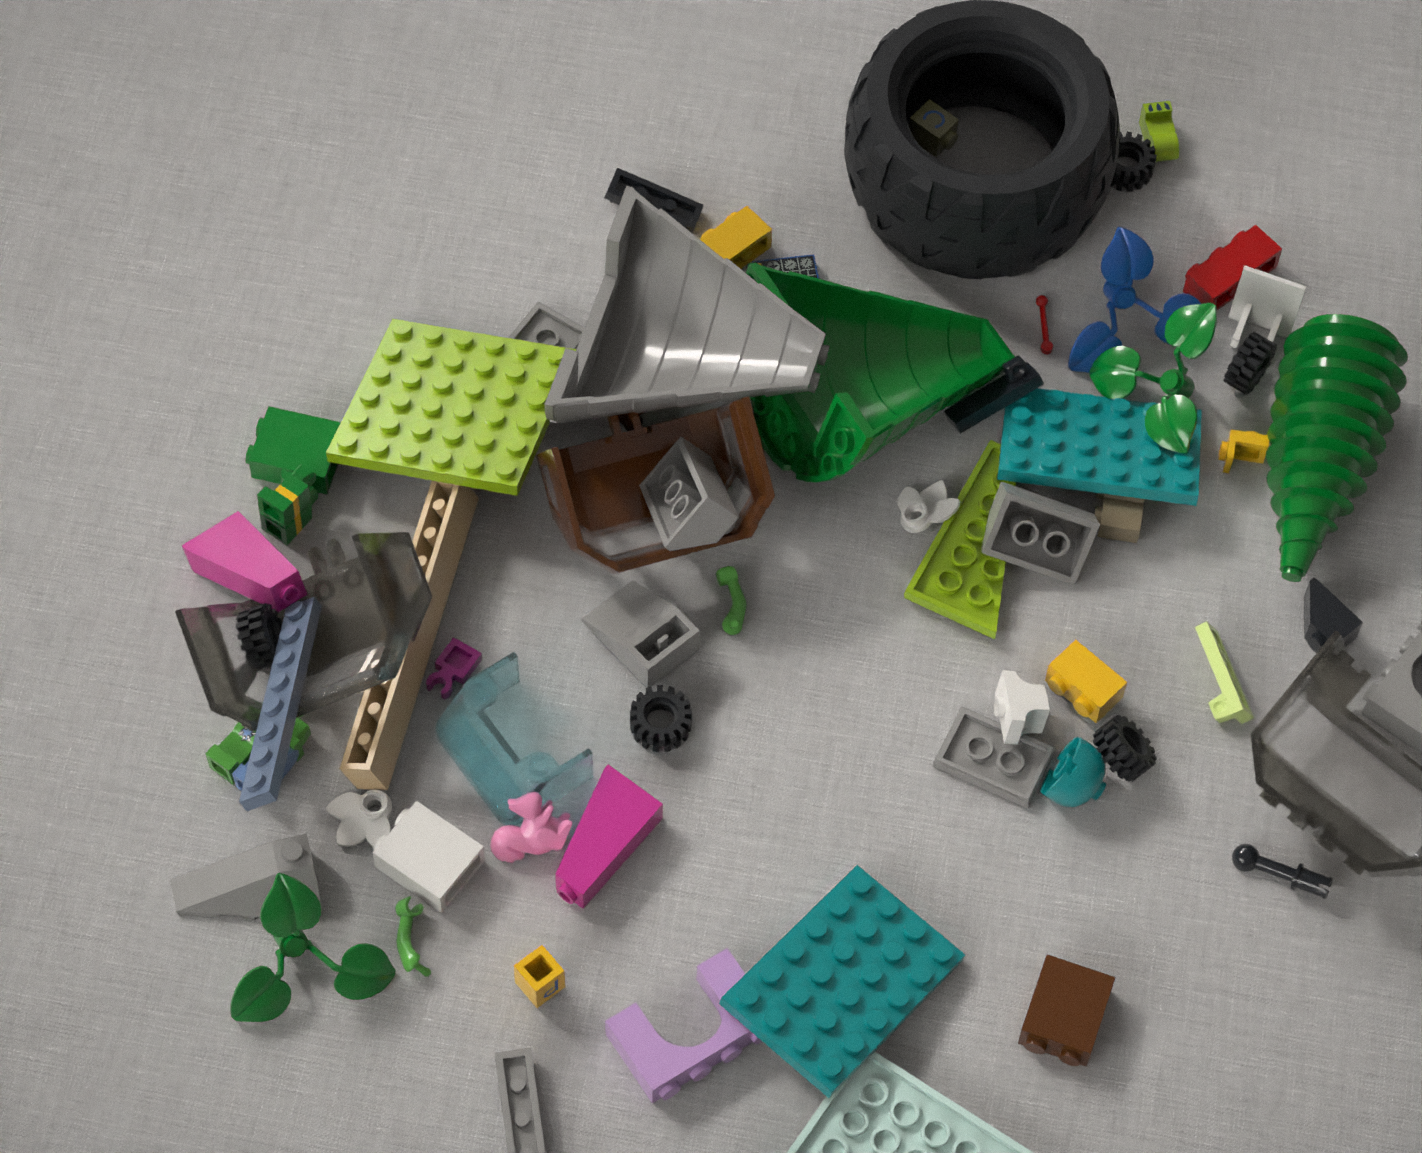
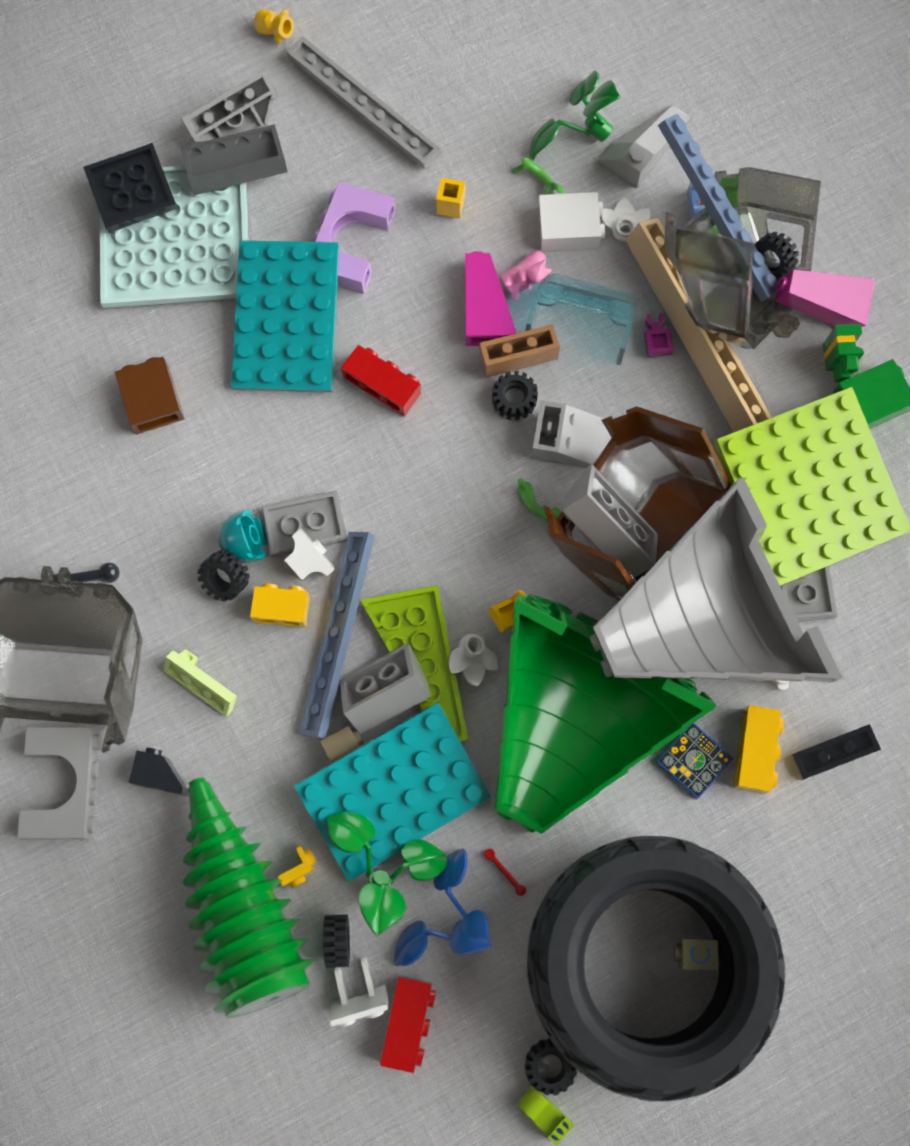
camera: 145 degrees right, 15 degrees up
(626, 750) = (519, 350): none -> medium nougat brick
(790, 837) = (381, 379): none -> red brick
(850, 519) = (503, 612): none -> yellow bracket
(1017, 382) = (483, 782): black hinge -> none
(1043, 622) = (336, 635): none -> sand blue plate

